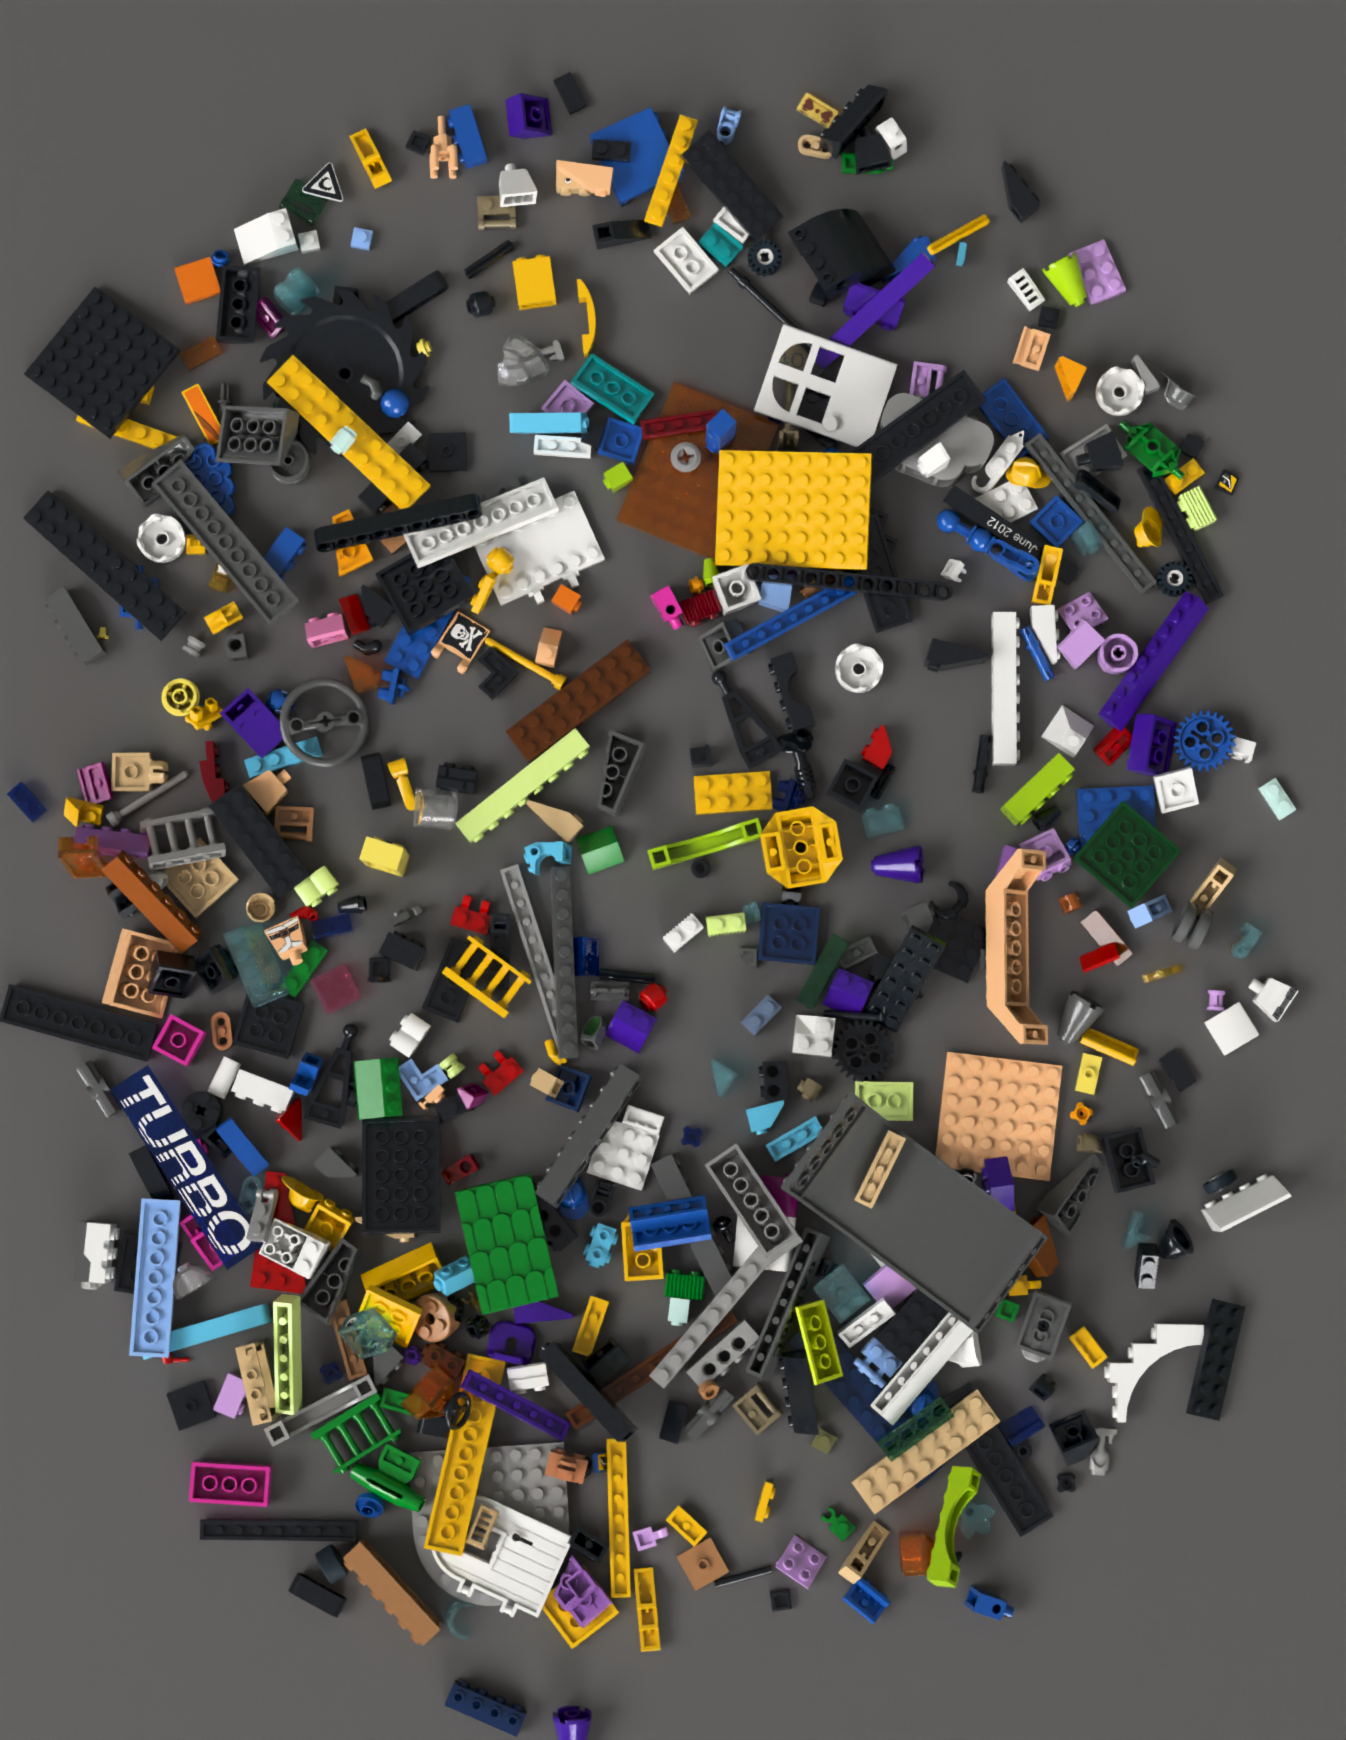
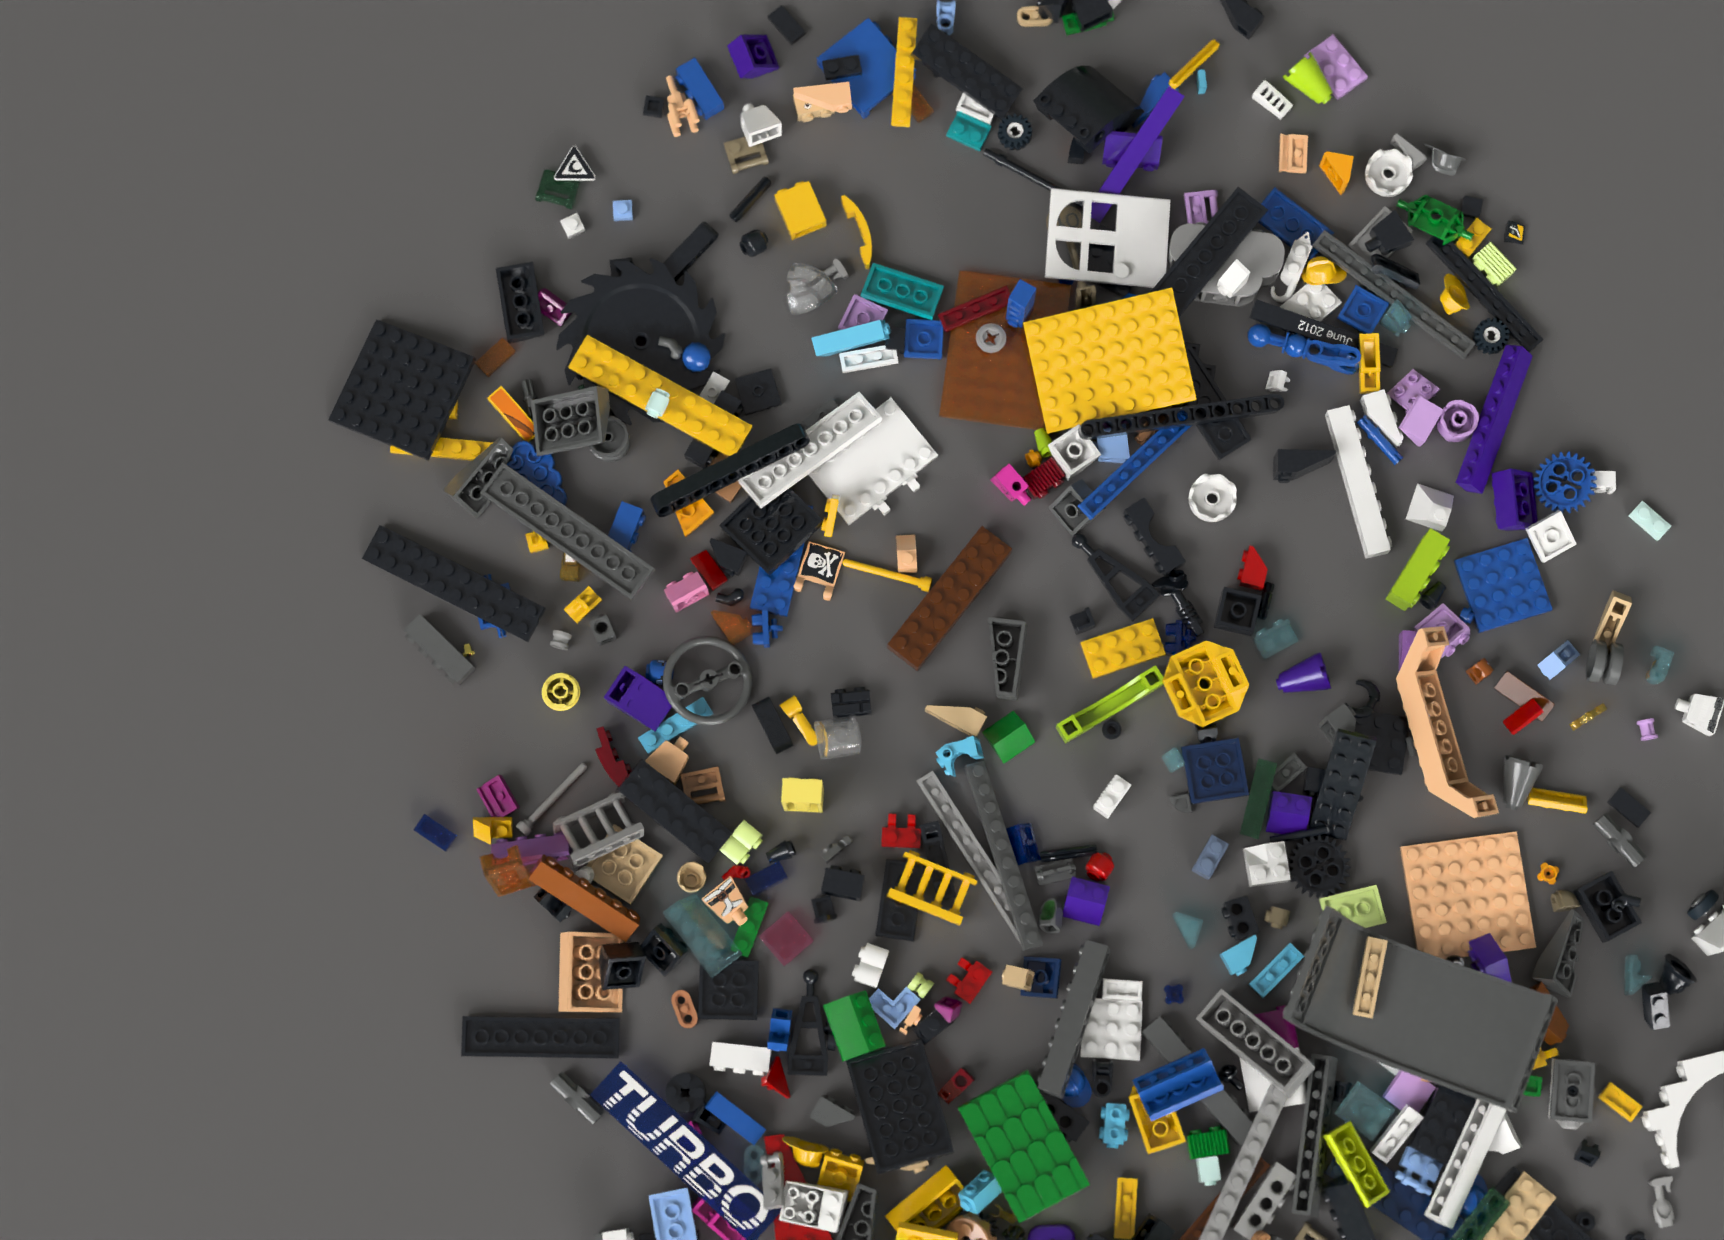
camera: 10 degrees left, 5 degrees down
(136, 772) = (535, 776): tan plate -> none
(151, 1174) = (651, 1168): black slope -> none
(152, 529) = (493, 534): white plate -> none
(179, 1040) = (645, 1028): dark pink brick -> none
(197, 280) = (474, 289): orange tile -> none
(203, 716) = (587, 705): yellow hips -> none
(220, 258) = (491, 262): blue plate -> none
(224, 1077) = (698, 1054): white pin -> none
(266, 237) = (530, 231): white slope -> none
(293, 289) = (569, 277): clear light blue slope -> none
(370, 158) = (611, 132): yellow slope -> none
(424, 346) = (708, 295): light yellow plate -> none
(500, 561) = (838, 481): yellow head -> none
(501, 673) = (866, 588): black plate -> none
(523, 785) = (916, 693): yellowish green brick -> none
(539, 1312) = (1072, 1207): dark purple slope -> none
(552, 1052) = (1016, 947): yellow arm -> none
(567, 599) = (912, 503): orange brick -> none
(617, 477) = (929, 374): lime brick -> none
(620, 232) = (870, 142): black slope -> none
(686, 260) = (940, 153): white plate -> none
(726, 924) = (1151, 777): yellowish green brick -> none
(980, 772) = (1357, 567): black pin -> none
(1021, 1426) = (1577, 1197): clear blue panel -> none
(1048, 317) = (1301, 120): black plate -> none
(1074, 1437) = (1632, 1194): black slope -> none
(1088, 1073) = (1543, 833): light yellow plate -> none
(1113, 745) = (1477, 509): red slope -> none
(1127, 854) = (1522, 610): dark green plate -> none
(1231, 1028) = (1670, 753): white slope -> none

